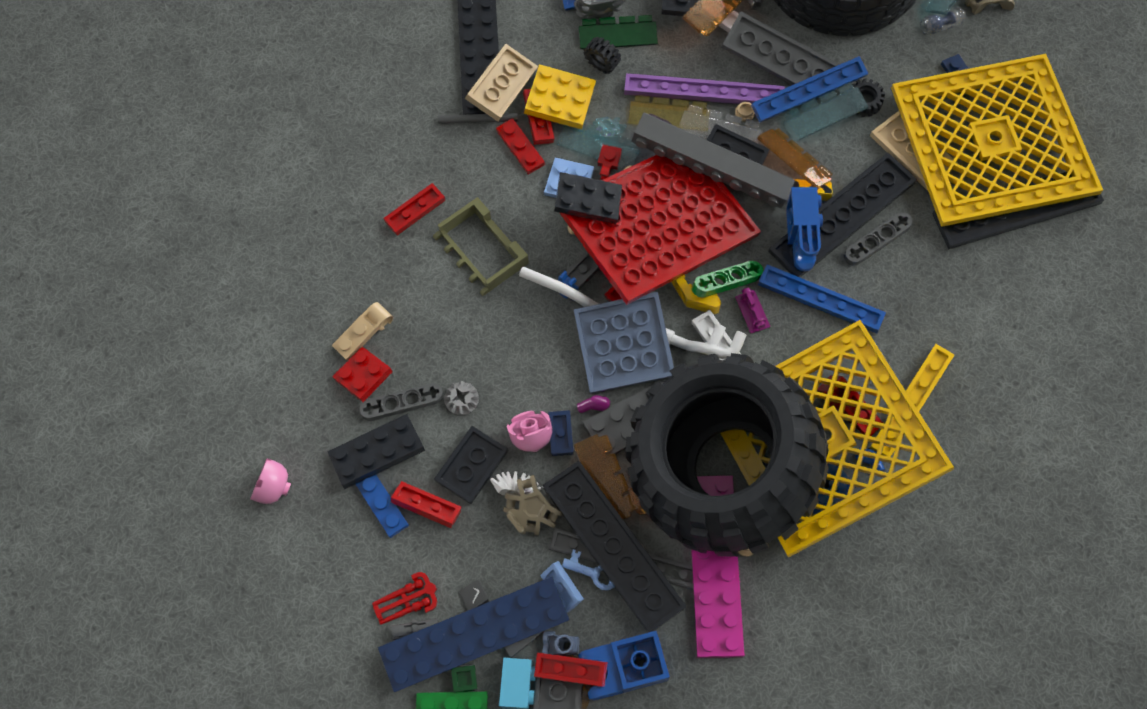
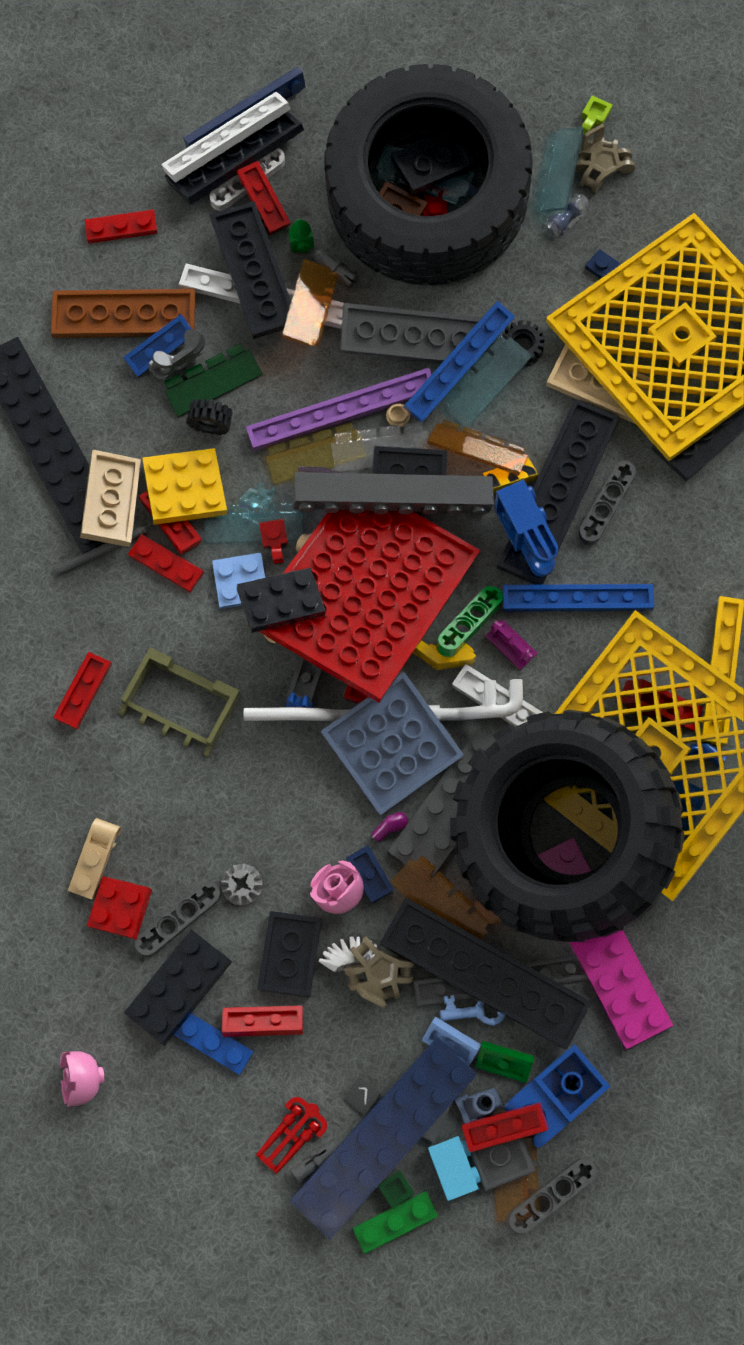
camera: 25 degrees left, 5 degrees up
(596, 621) = (504, 1061): none -> green plate

